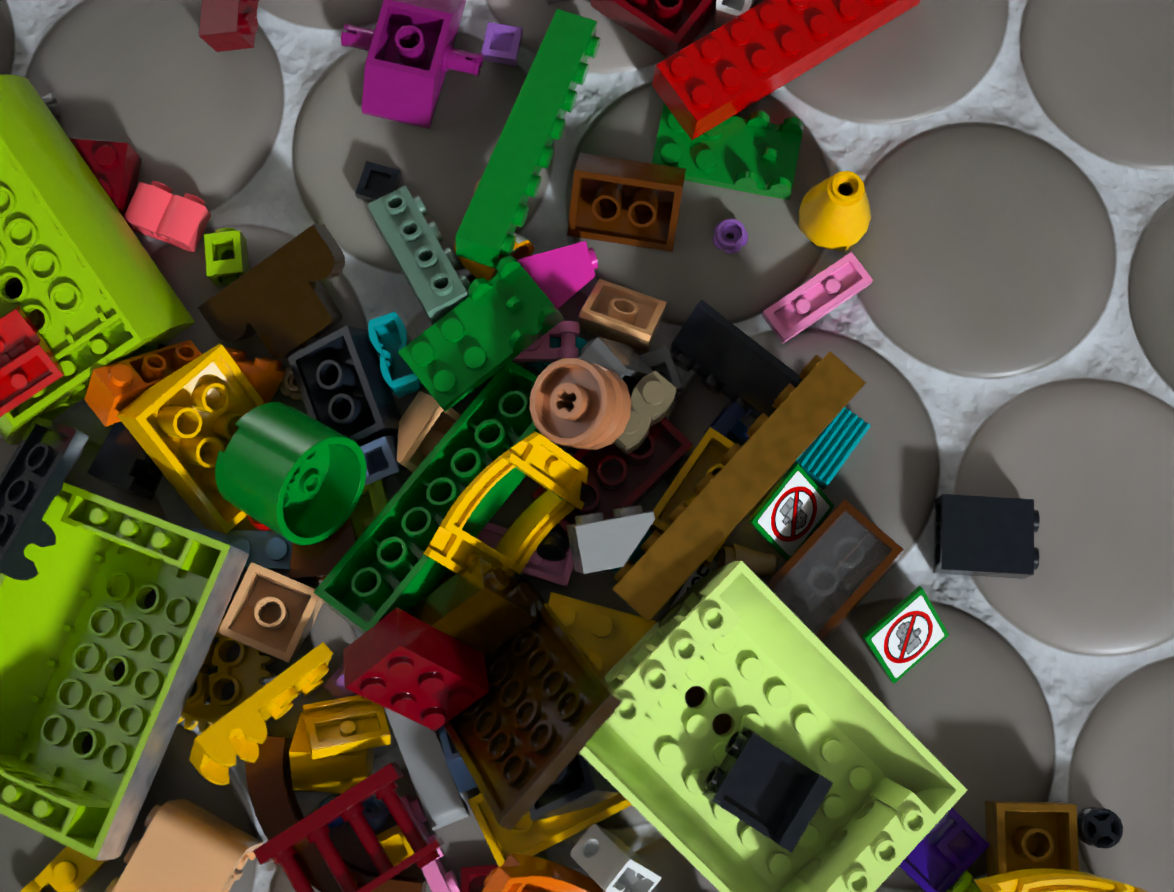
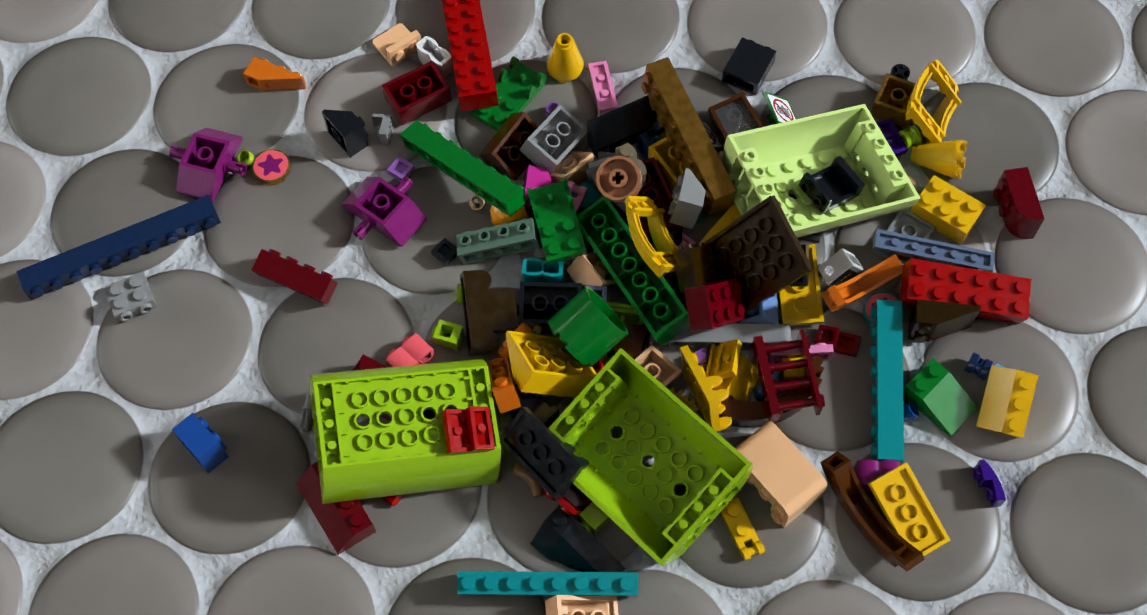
camera: 70 degrees left, 15 degrees down
(658, 261) = (554, 139): none -> light grey brick

